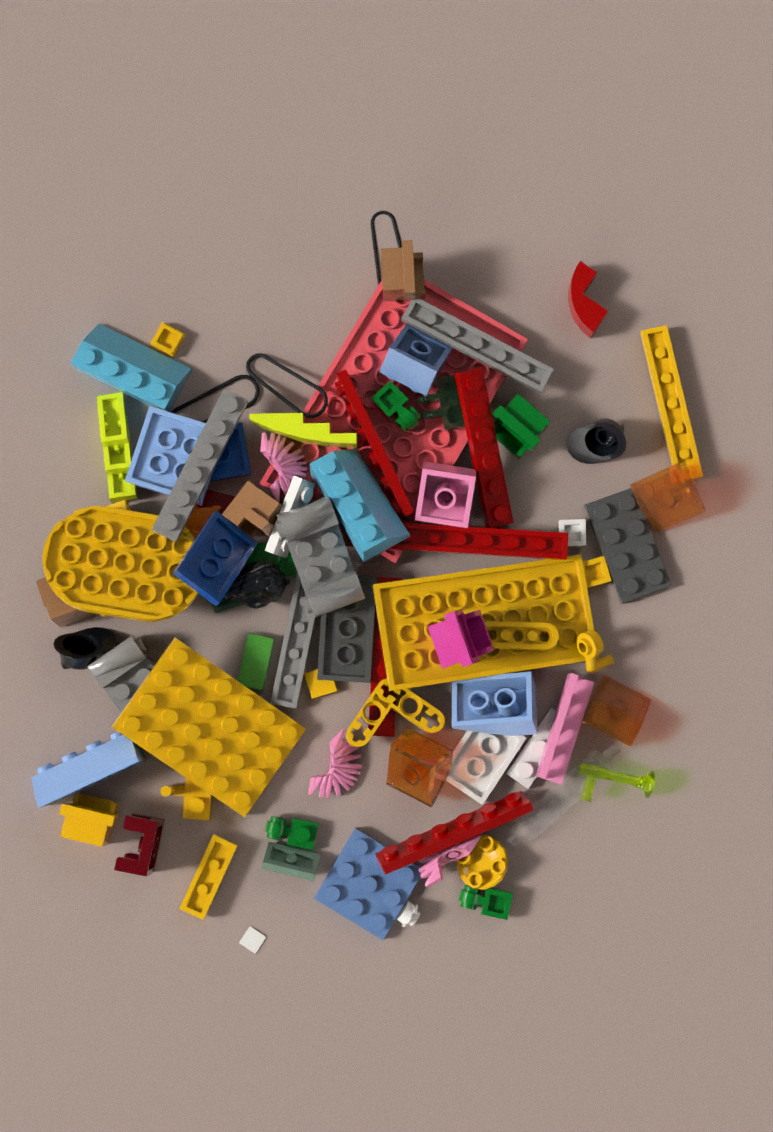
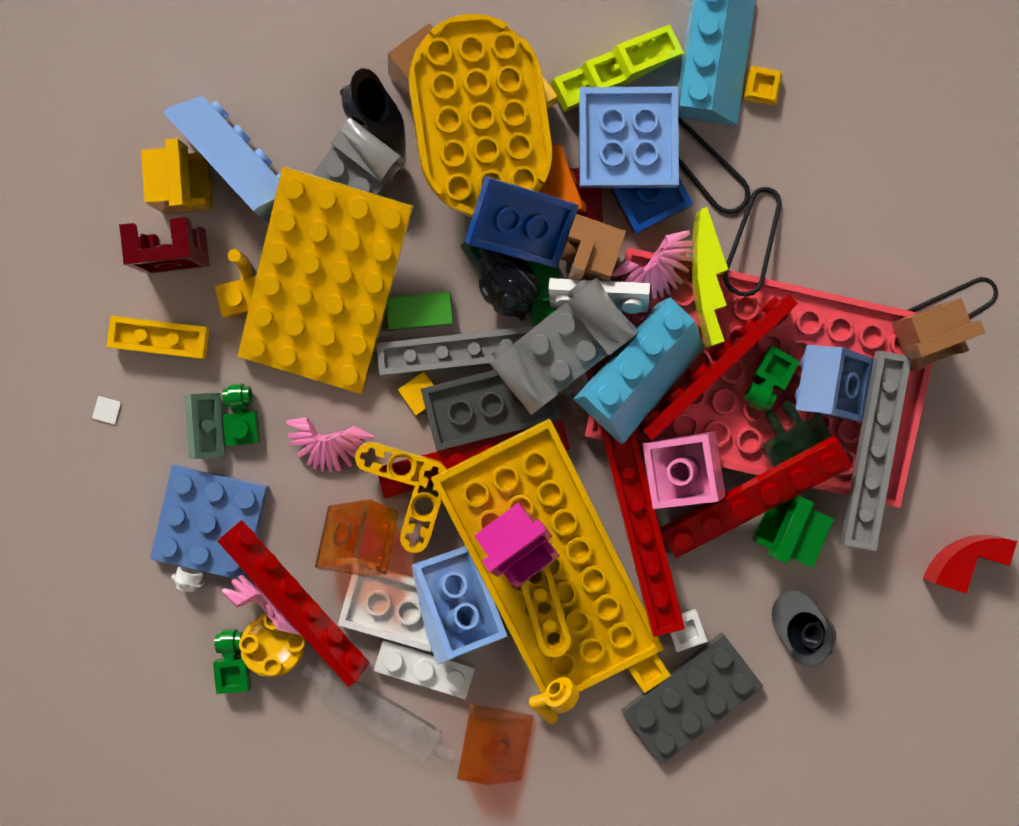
camera: 70 degrees right, 5 degrees up
(200, 465) = (626, 168): light grey plate -> none
(564, 728) = (453, 693): bright pink fence -> none
(645, 783) = (422, 805): clear neon green piece -> none
(668, 496) = (765, 732): clear orange slope -> none
(670, 399) = (876, 699): yellow plate -> none

